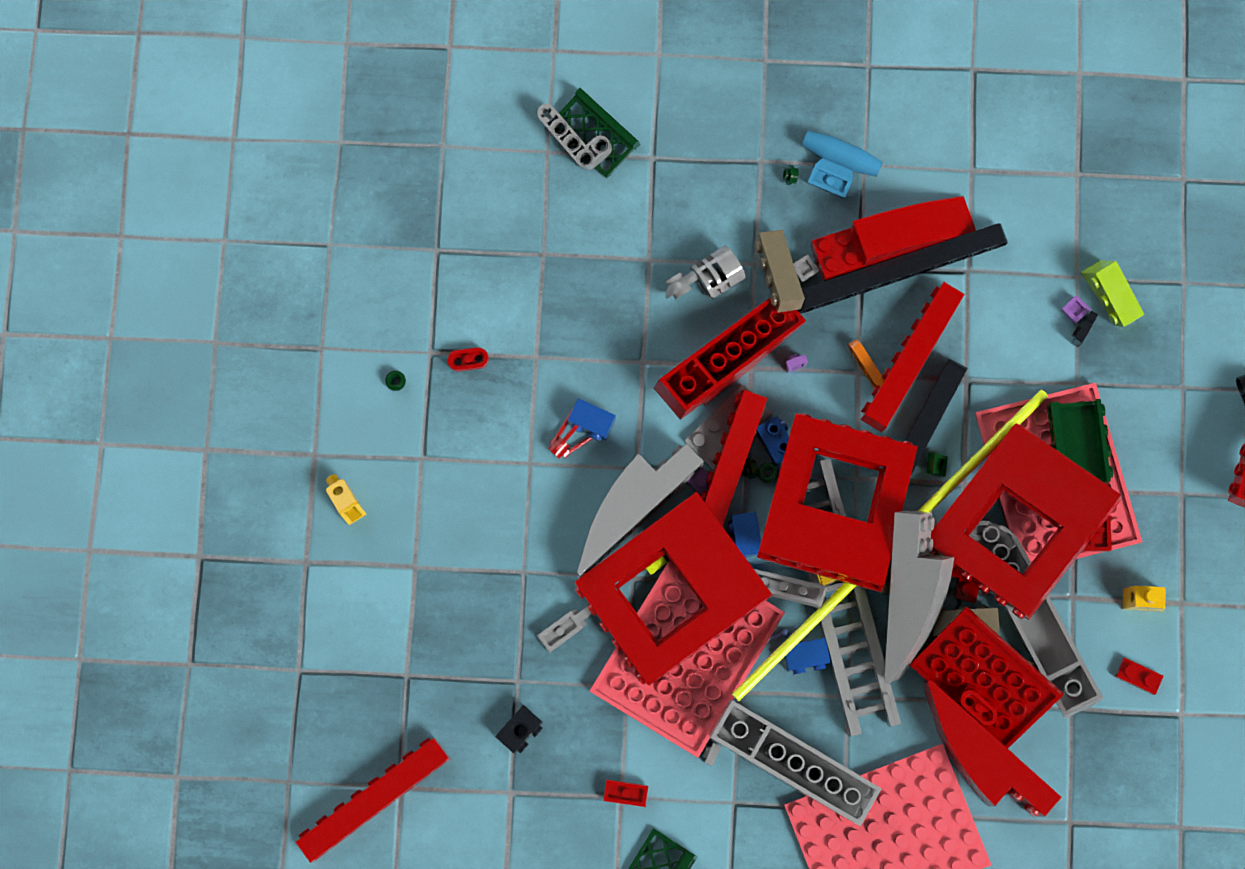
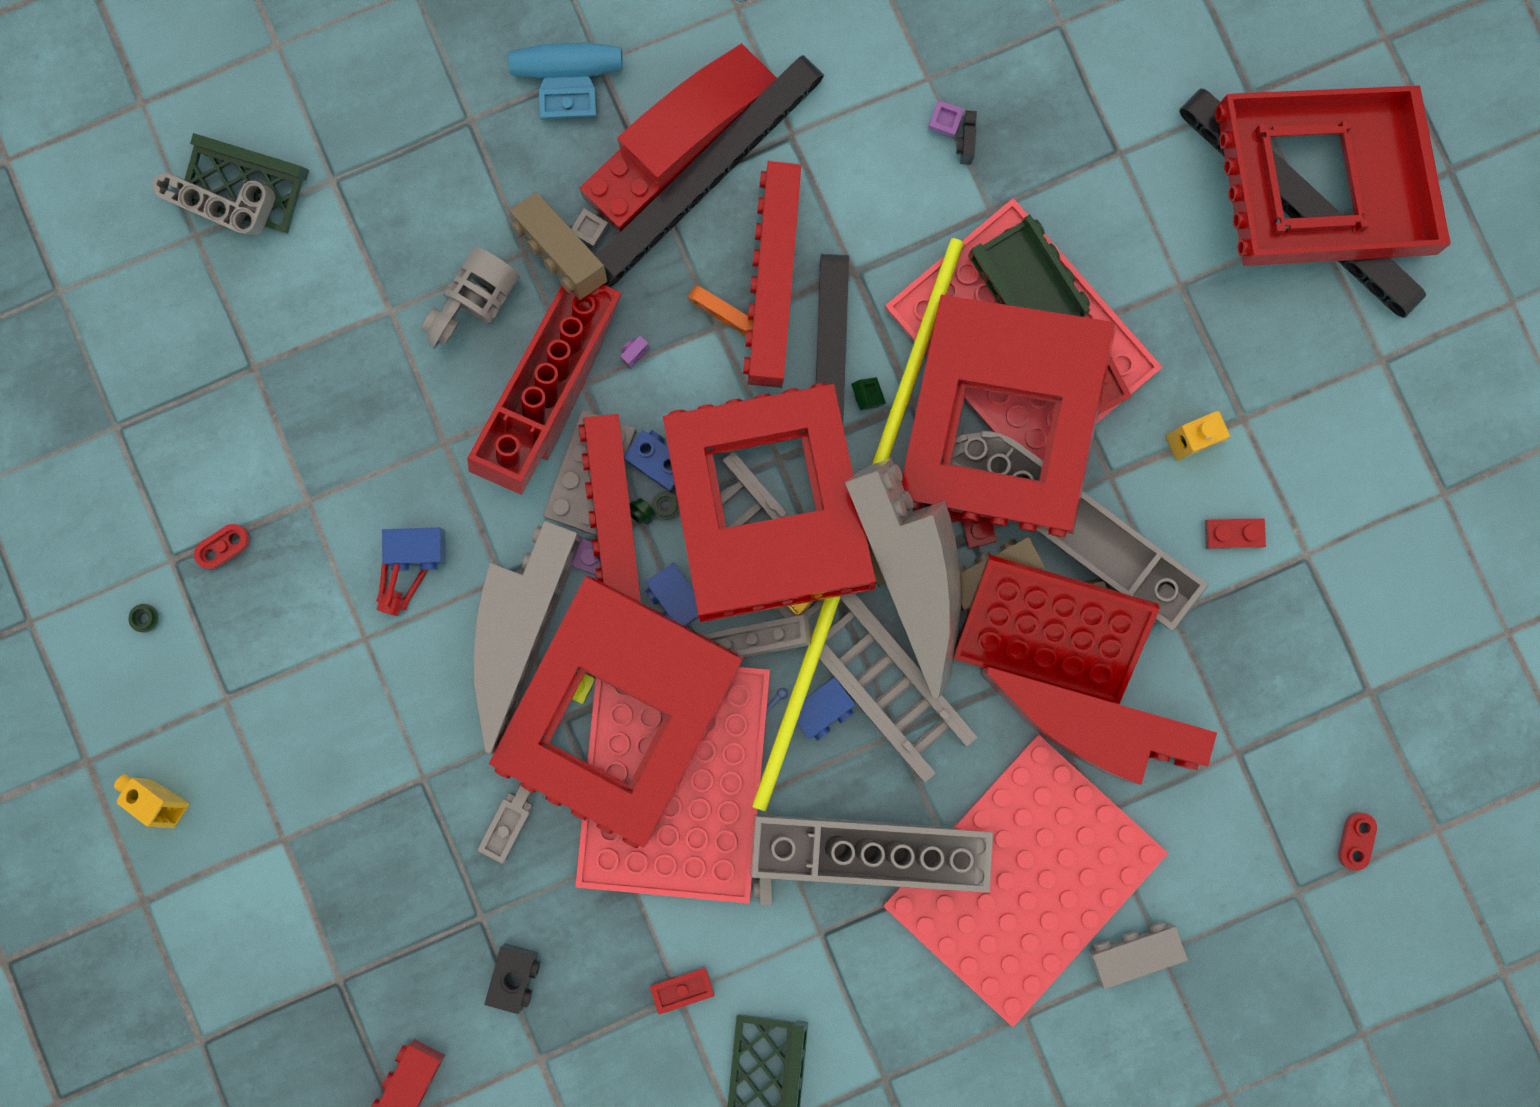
camera: 30 degrees left, 5 degrees up
(790, 175) = (515, 118): dark green plate -> none
(977, 707) = (1061, 672): red plate -> none
(1113, 292) = (981, 74): lime wedge -> none

